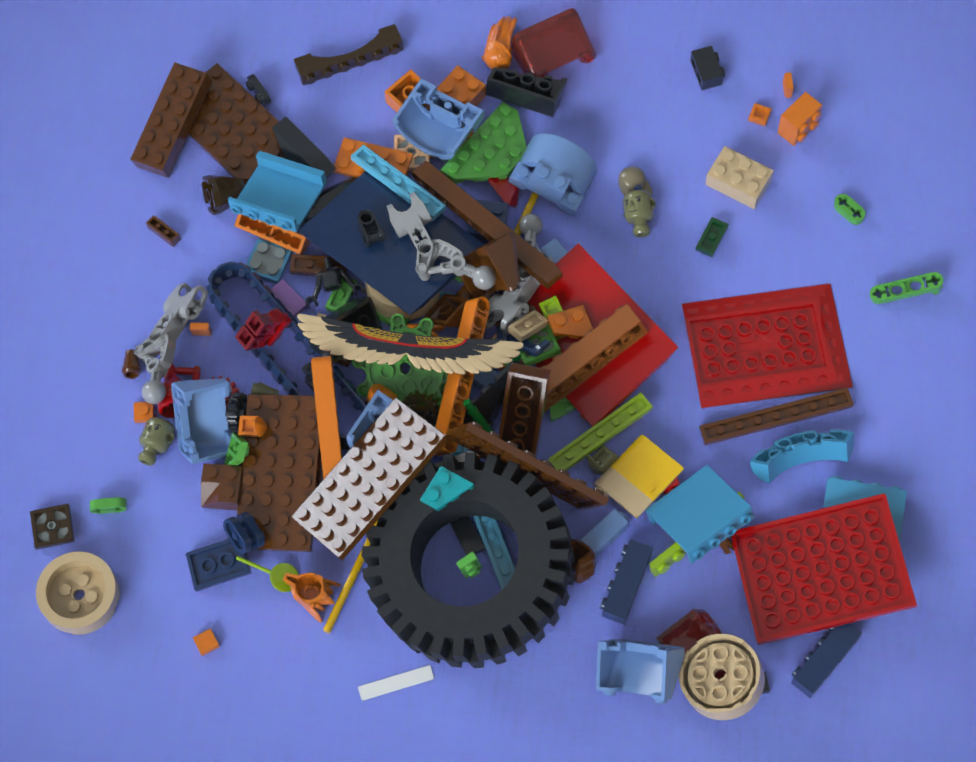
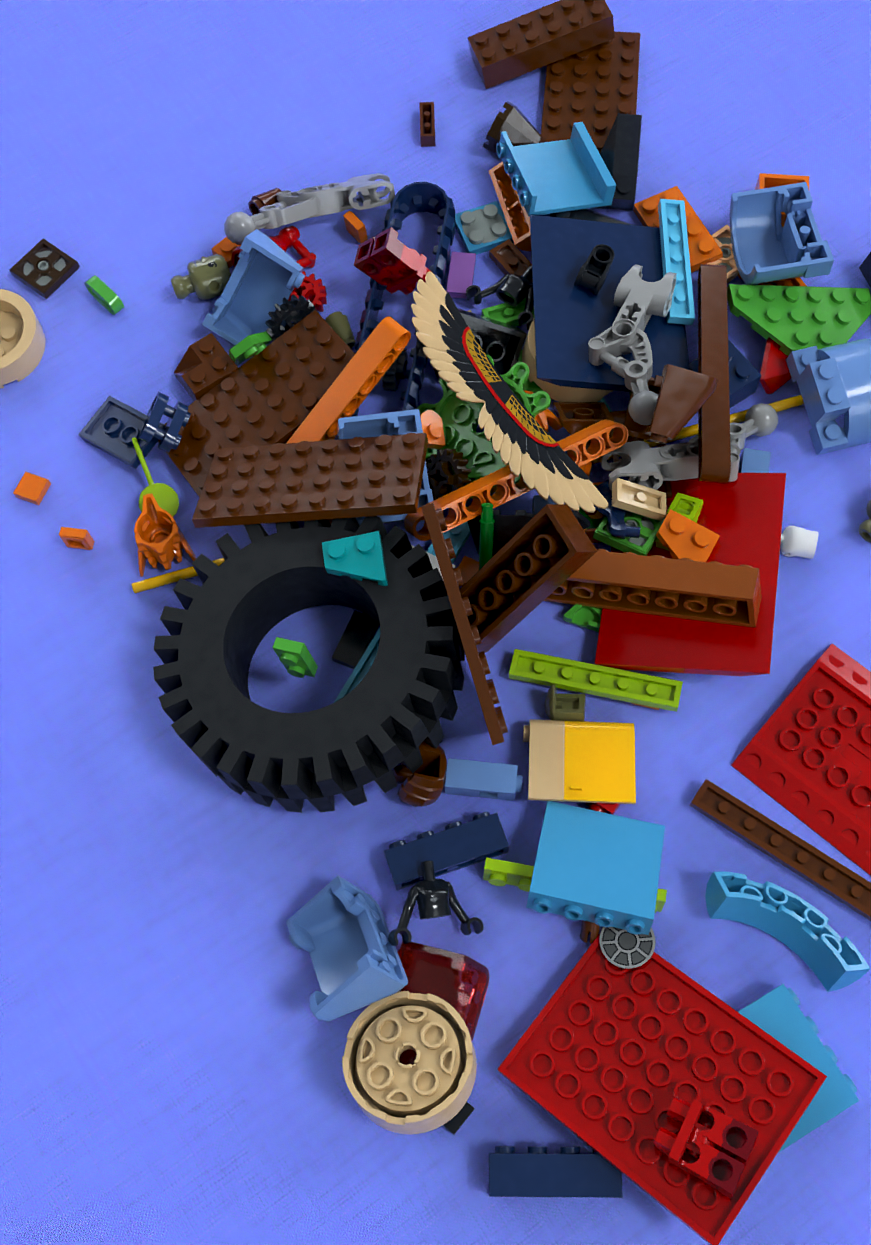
camera: 50 degrees right, 0 degrees up
(252, 426) = (280, 336): orange plate -> none
(261, 94) = (649, 77): black plate -> none
(267, 639) = (76, 538): none -> orange tile
(315, 68) = (806, 141): dark brown arch -> none
(395, 682) = (130, 701): white sticker -> none
(463, 87) = (845, 239): orange brick -> none
(616, 268) = (798, 542): none -> white piece
(650, 605) = (433, 901): none -> black piece
(750, 534) = (626, 949): none -> sticker
(872, 569) = (696, 1142): none -> red hips

